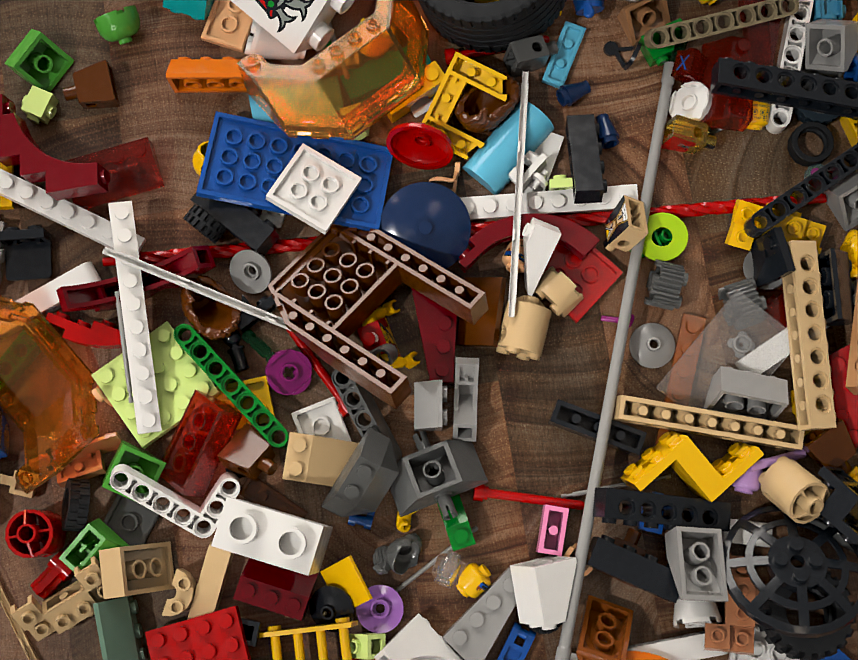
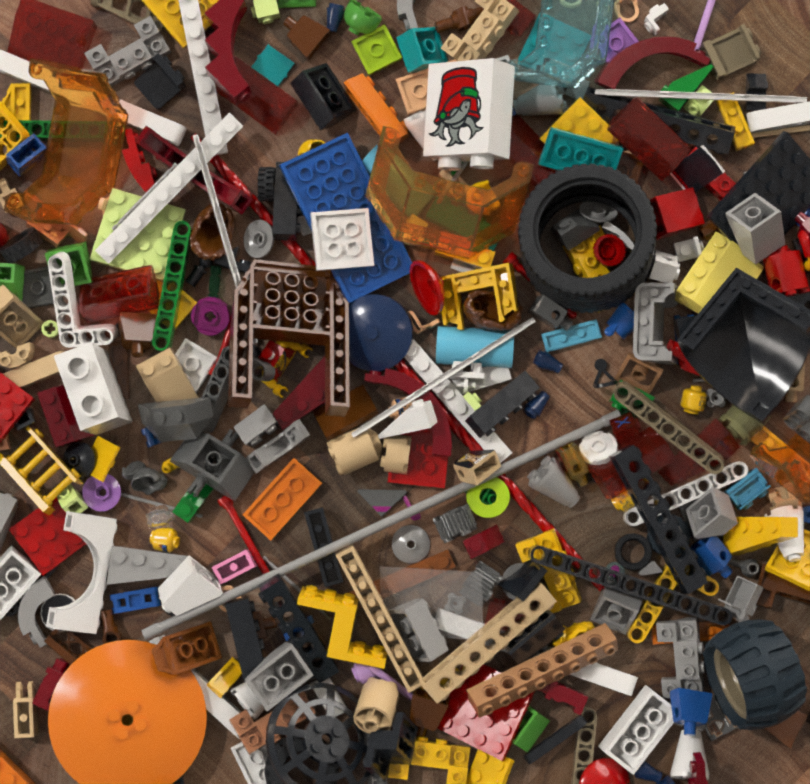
camera: 60 degrees right, 5 degrees up
(96, 48) = (334, 16): none -> dark blue cone
(96, 137) = (273, 65): none -> teal piece
(160, 34) = (376, 50): none -> lime plate
(162, 114) = (323, 96): none -> black slope
(172, 539) = (47, 324): none -> yellowish green bush
(519, 435) = (282, 499): none -> orange plate
(590, 340) = (381, 500): none -> dark grey tile
(656, 621) = (225, 677): none -> yellow tile
(691, 167) = (553, 482): none -> light grey cone
(703, 276) = (483, 541): none -> dark red slope
(840, 137) = (650, 568): none -> light grey slope

